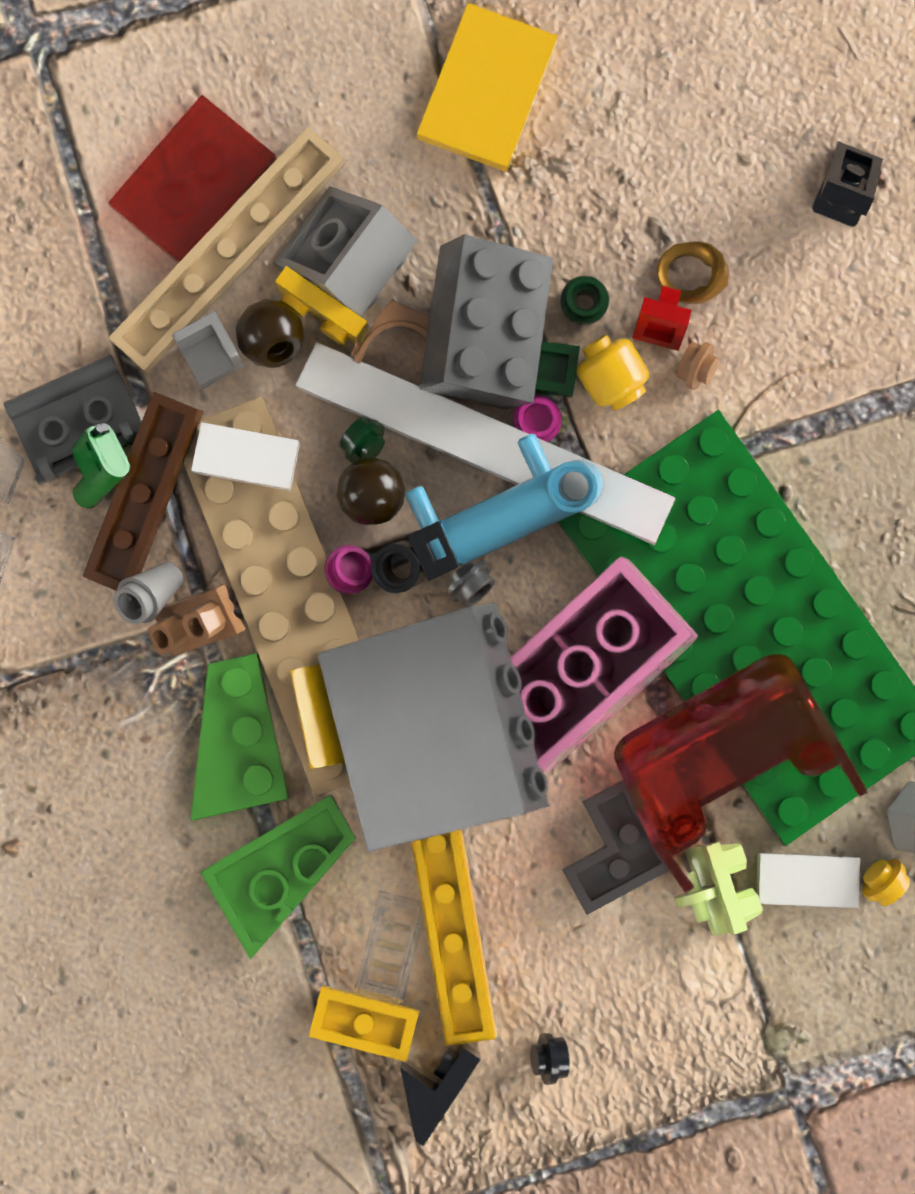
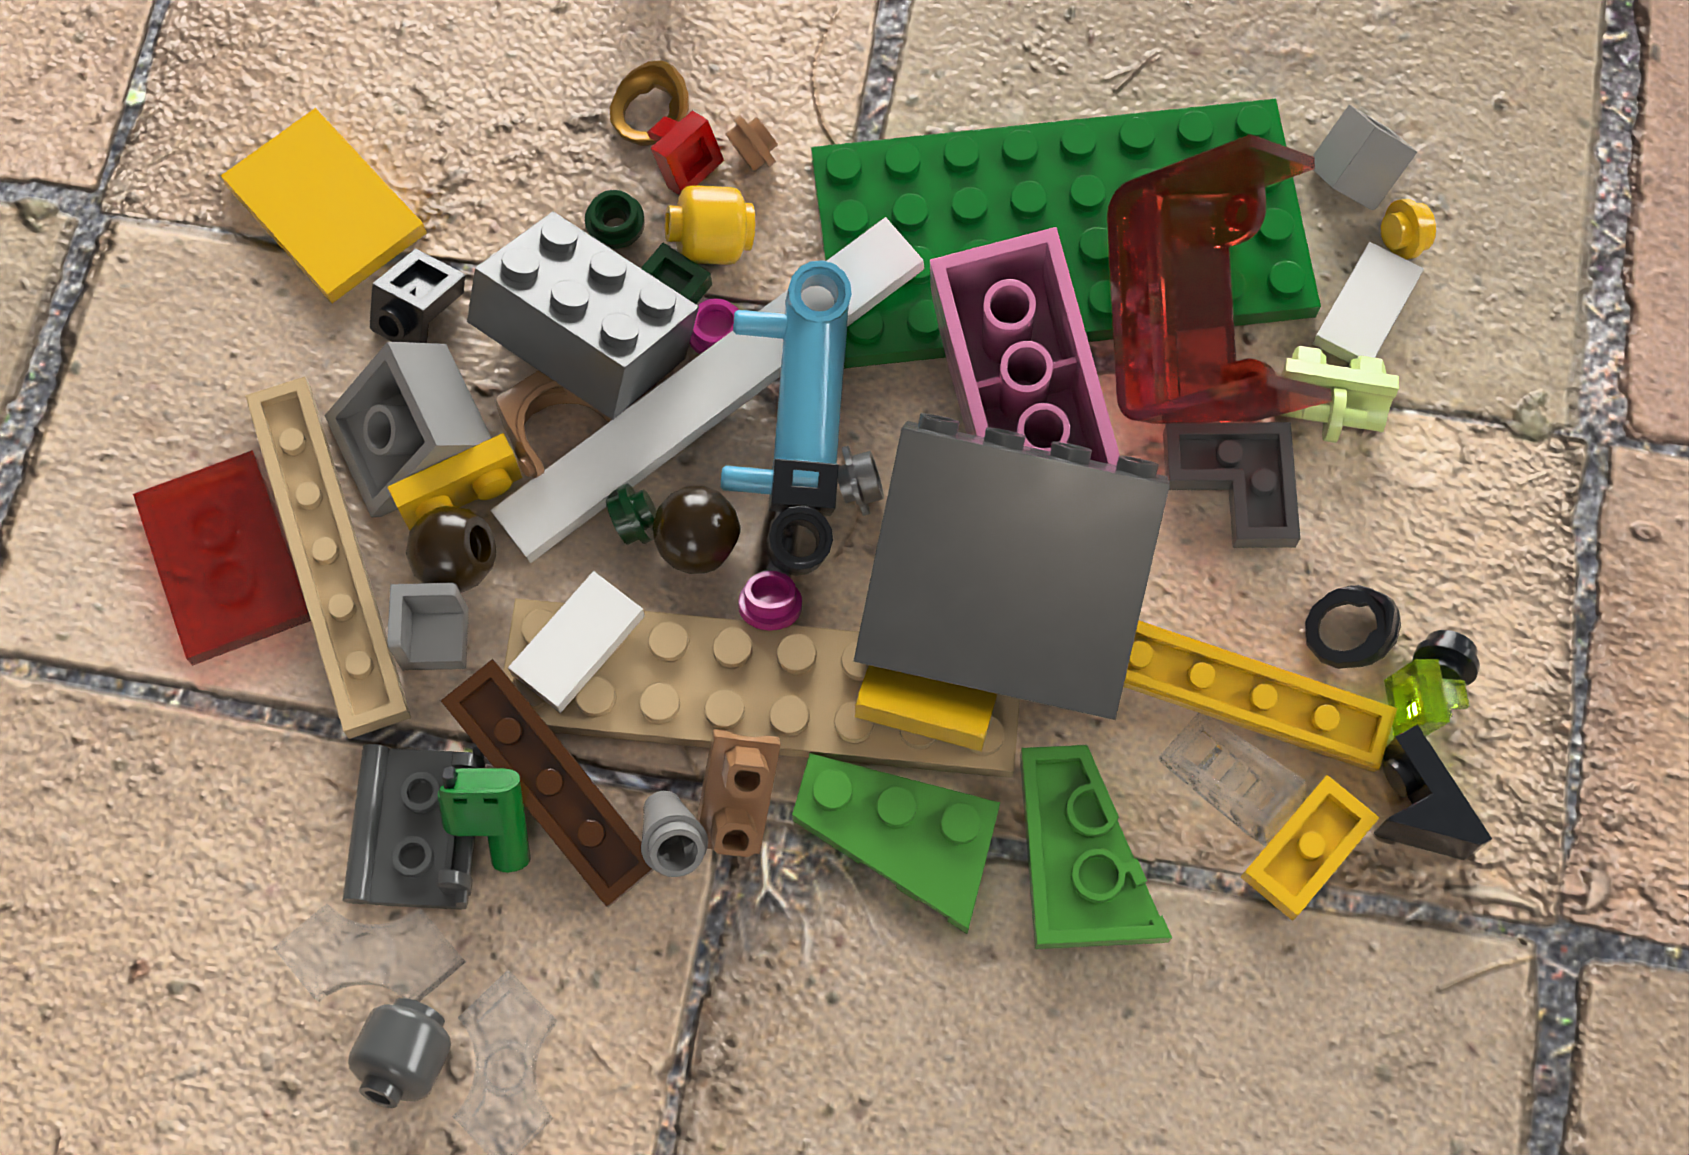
camera: 60 degrees left, 15 degrees down
(445, 195) = (412, 297): none -> black bracket
(509, 1055) = (1423, 696): none -> clear neon green tile
(536, 1004) = (1378, 641): none -> black piece

